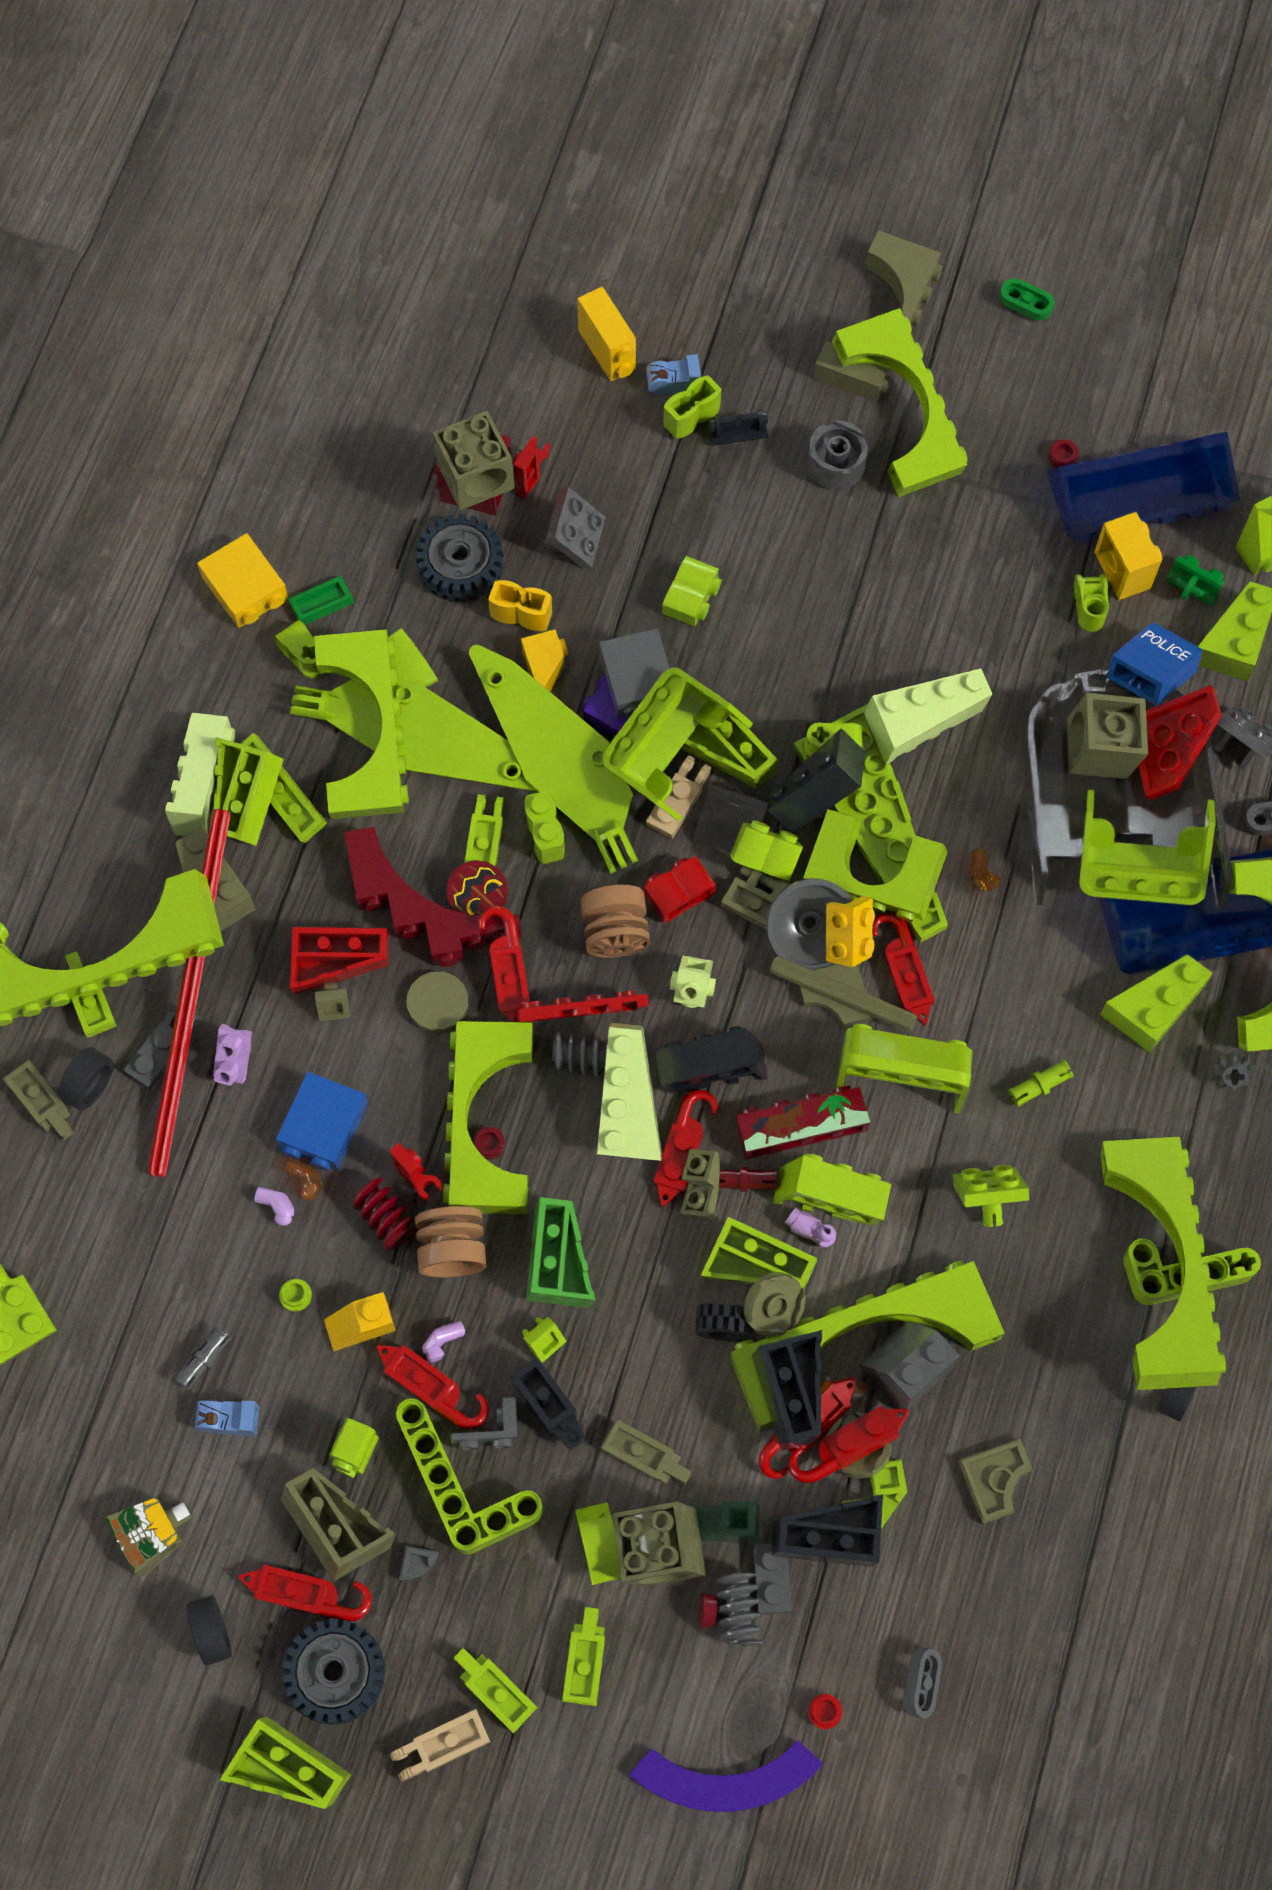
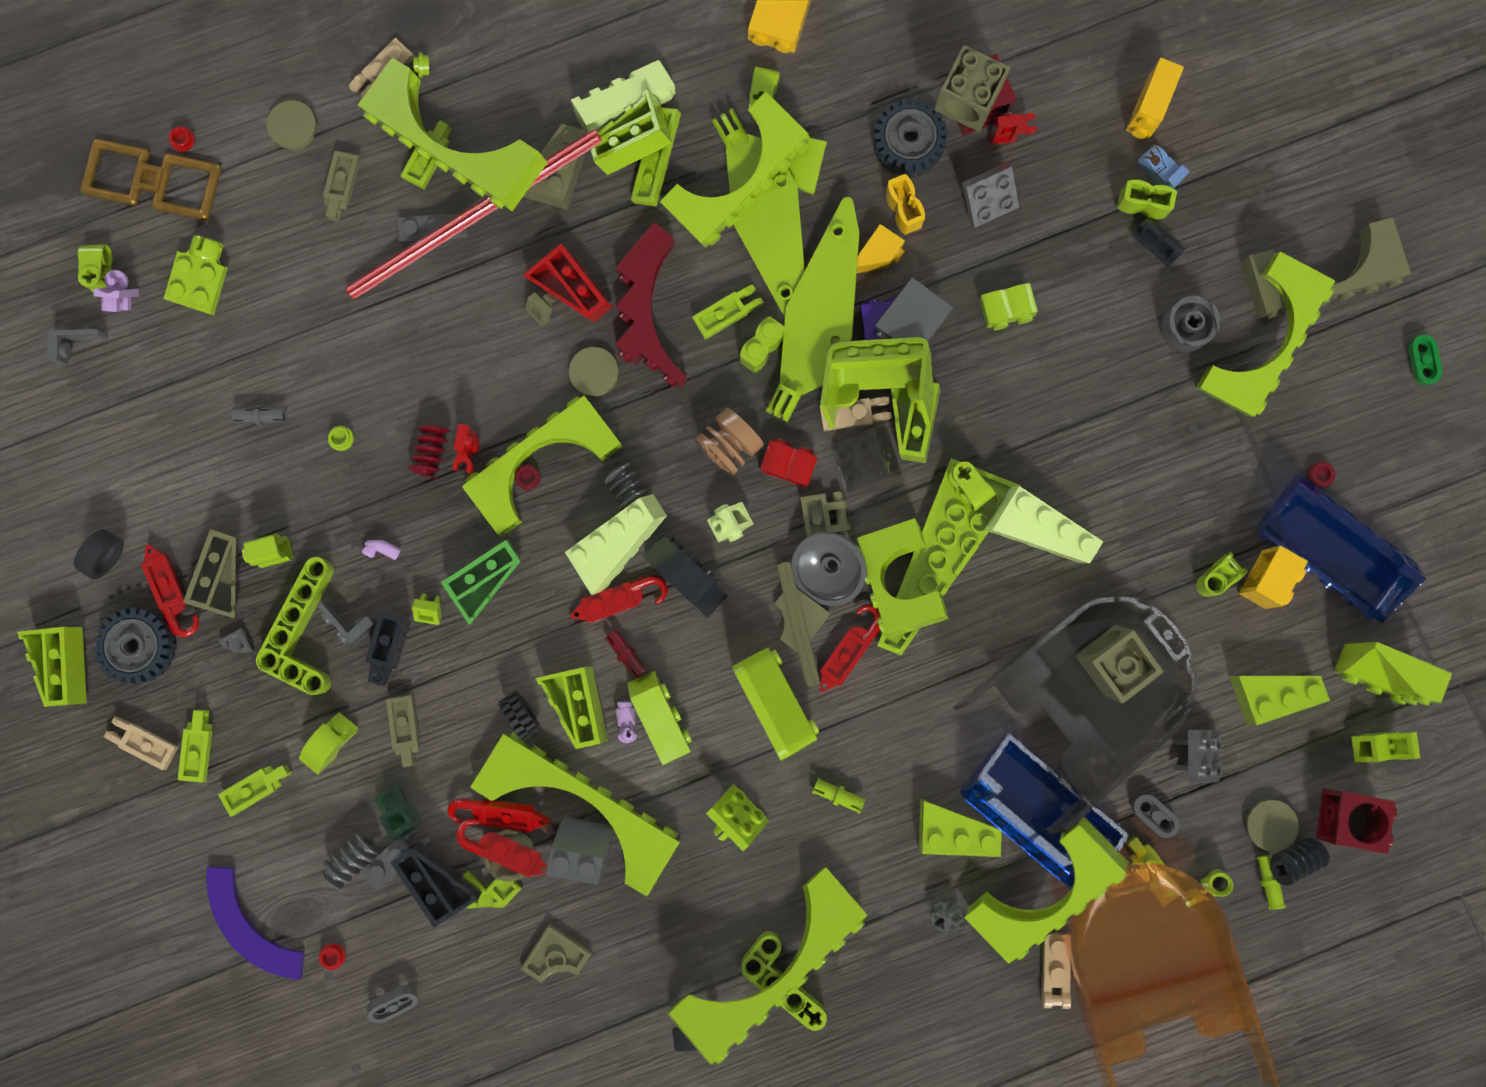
camera: 55 degrees right, 15 degrees up
(85, 1078) = (369, 200): black tyre -> none
(148, 1532) = (131, 470): torso -> none
(227, 1417) = (235, 460): medium blue leg -> none
(232, 1055) = (454, 275): lavender hips -> none
(280, 1204) = (389, 381): lavender arm -> none
(308, 1176) = (419, 385): clear orange arm -> none
(321, 600) = (808, 75): green tile -> none
(322, 1122) = (457, 365): blue brick -> none
(360, 1322) = (353, 492): yellow slope -> none
(429, 1385) = (346, 564): red plate -> none
(450, 1242) = (438, 506): medium nougat wheel -> none
(476, 888) = (685, 337): tile -> none
(507, 964) = (646, 398): red plate -> none
(592, 1005) = (654, 466): red wing -> none
(659, 1544) = (346, 783): olive brick -> none
(702, 1176) = (605, 628): olive slope -> none
(707, 1611) = (337, 840): dark red tile -> none
(766, 850) = (857, 499): lime brick -> none
(774, 1304) = (548, 740): olive tile -> none
(791, 1387) = (504, 790): black wedge -> none
(802, 1122) = (690, 663): brick -> none
(818, 782) = (930, 498): black wedge -> none
(849, 931) = (841, 597): yellow bracket -> none
(979, 874) = (956, 649): clear orange arm -> none
(1142, 870) = (1038, 759): lime windscreen -> none
(1154, 663) = (1203, 655): blue brick -> none
(1176, 738) = (1156, 710): red plate -> none
(1195, 580) = (1293, 637): green hips -> none

